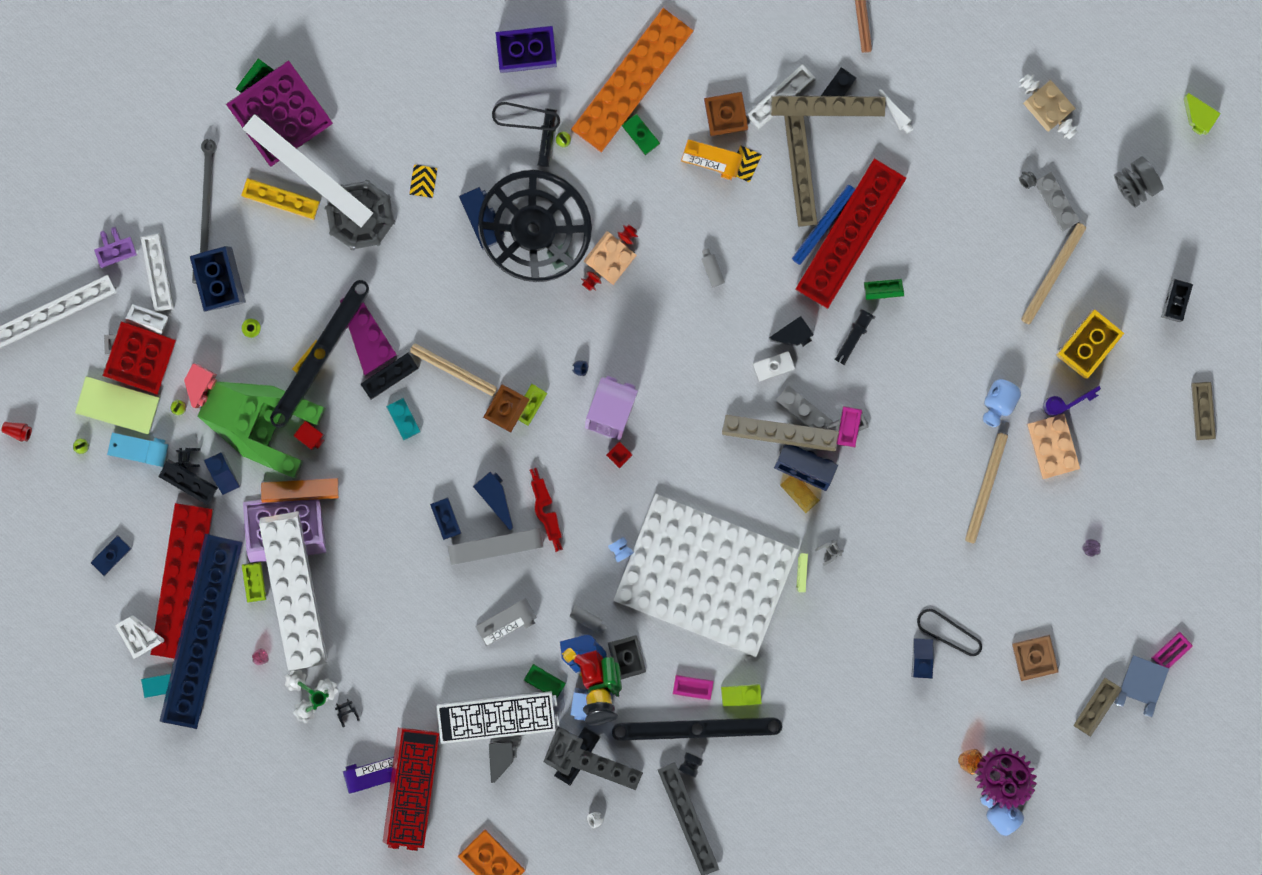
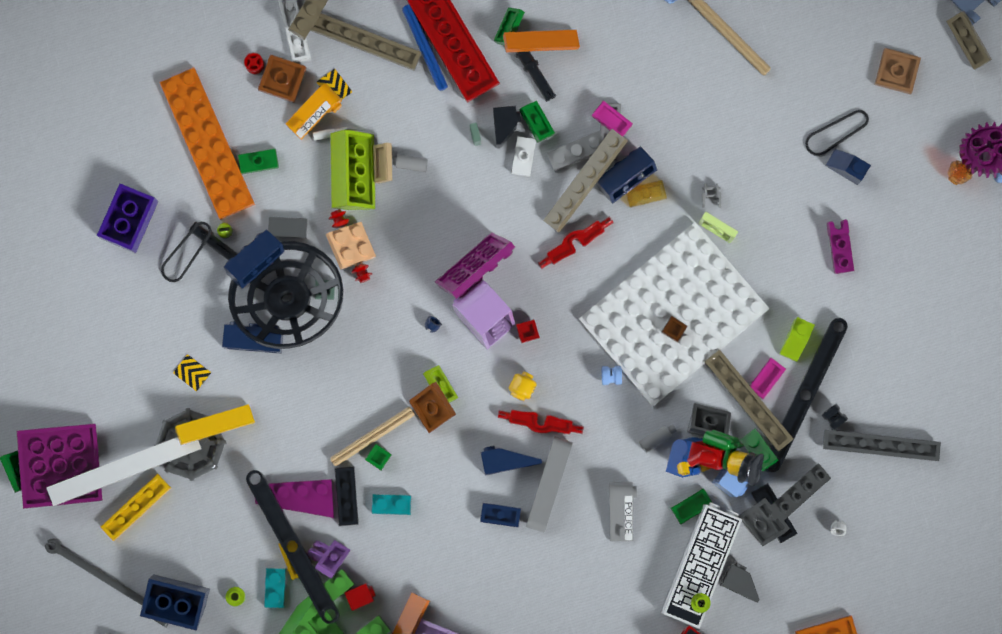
camera: 65 degrees left, 5 degrees down
(277, 358) = (275, 588): none -> teal plate
(325, 393) = (329, 557): none -> medium lavender hinge
(388, 227) = (214, 424): none -> yellow tile
(438, 385) = (378, 457): none -> green plate
(463, 726) = (694, 602): none -> lime plate
(550, 180) = (254, 258): none -> dark blue brick
(568, 476) = (522, 386): none -> yellow head
(596, 193) = (288, 227): none -> dark grey tile
(626, 713) = (755, 443): none -> green plate
(649, 377) = (474, 265): none -> magenta plate
(663, 681) = (749, 400): none -> dark tan plate
(677, 222) = (352, 170): none -> lime slope
(691, 582) = (674, 329): none -> reddish brown tile
(699, 245) = (382, 162): none -> tan tile
(700, 183) = (326, 133): none -> white pin
(724, 79) = (251, 60): none -> red wheel
(730, 459) = (583, 236): none -> red piece
(769, 312) = (475, 134): none -> sand green tile
(811, 361) = (537, 121): none -> green plate
(845, 691) = (840, 247): none -> magenta plate
(885, 325) = (541, 40): none -> orange tile

